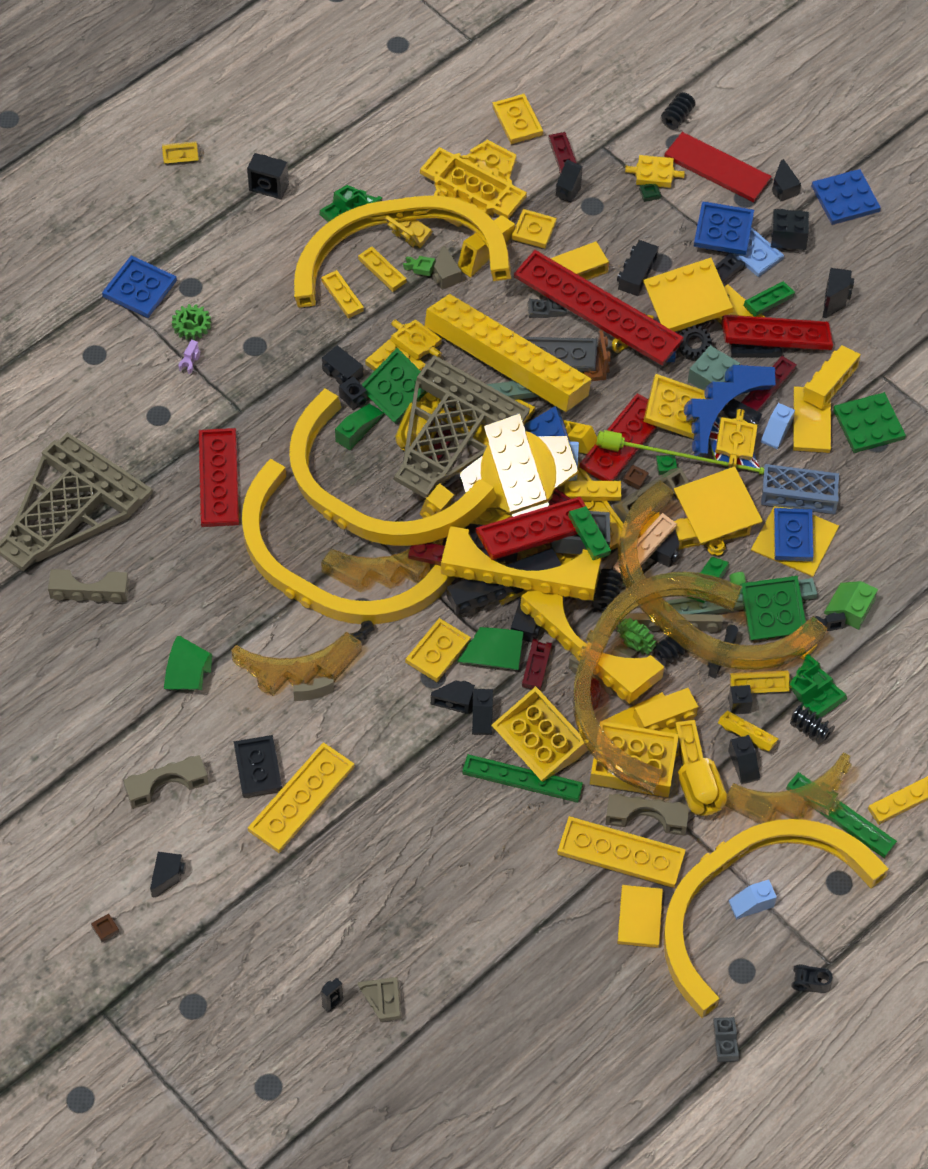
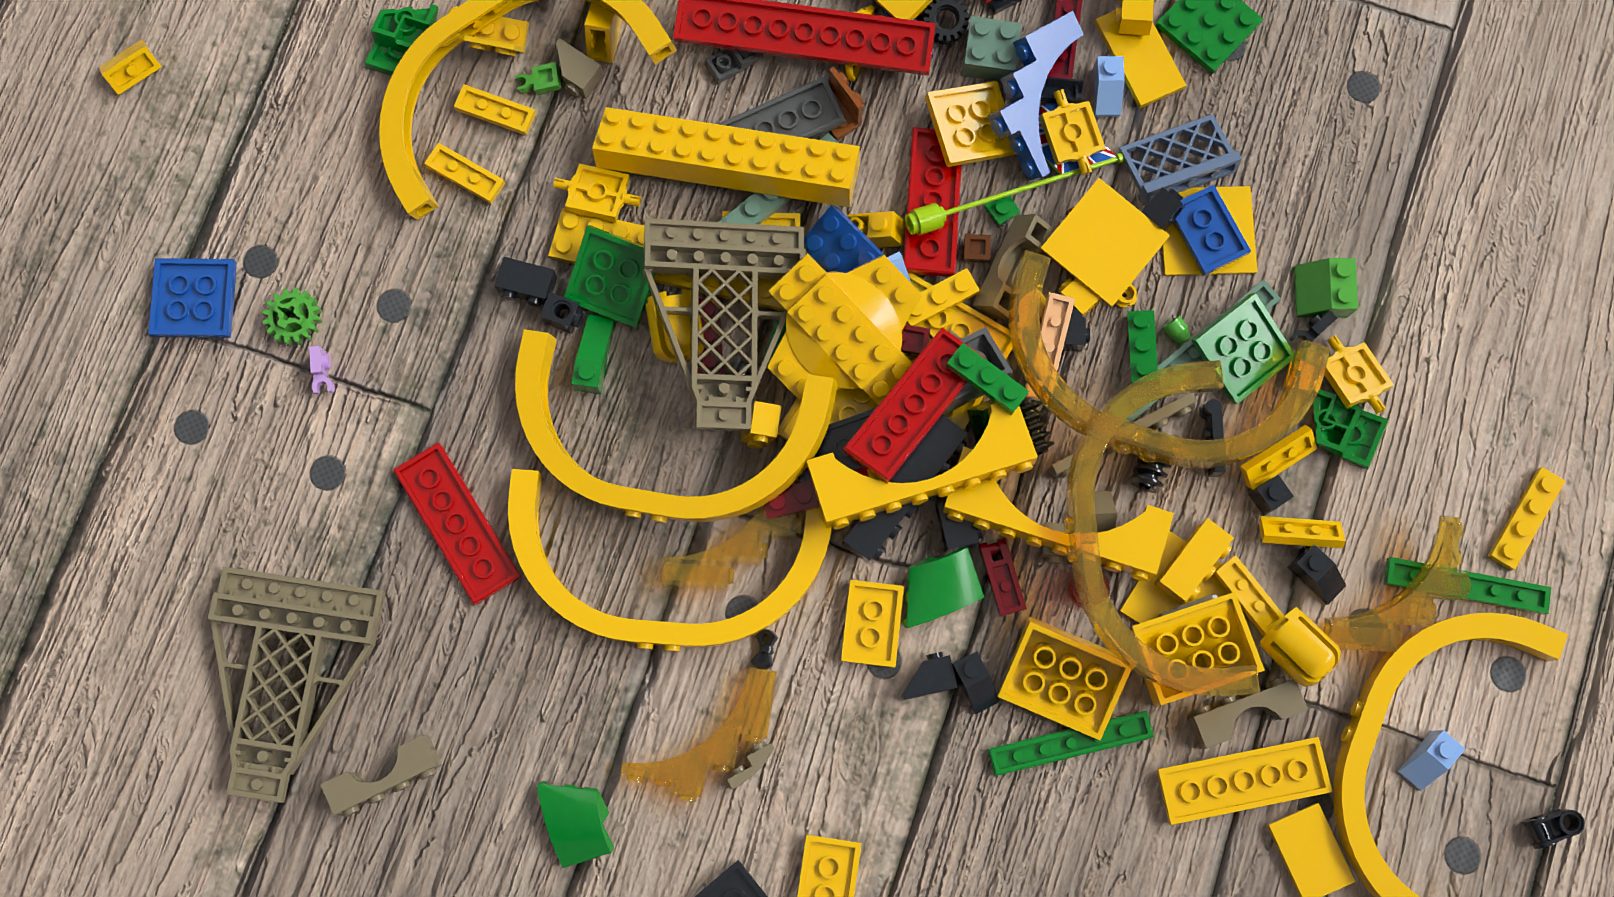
camera: 30 degrees left, 20 degrees up
(268, 176) = (269, 48): black brick -> none
(636, 636) = (1112, 480): bright green gear -> none
(768, 505) = (1164, 208): none -> black brick
(811, 725) = (1372, 481): black piece -> none
(839, 658) = (1356, 375): none -> yellow plate

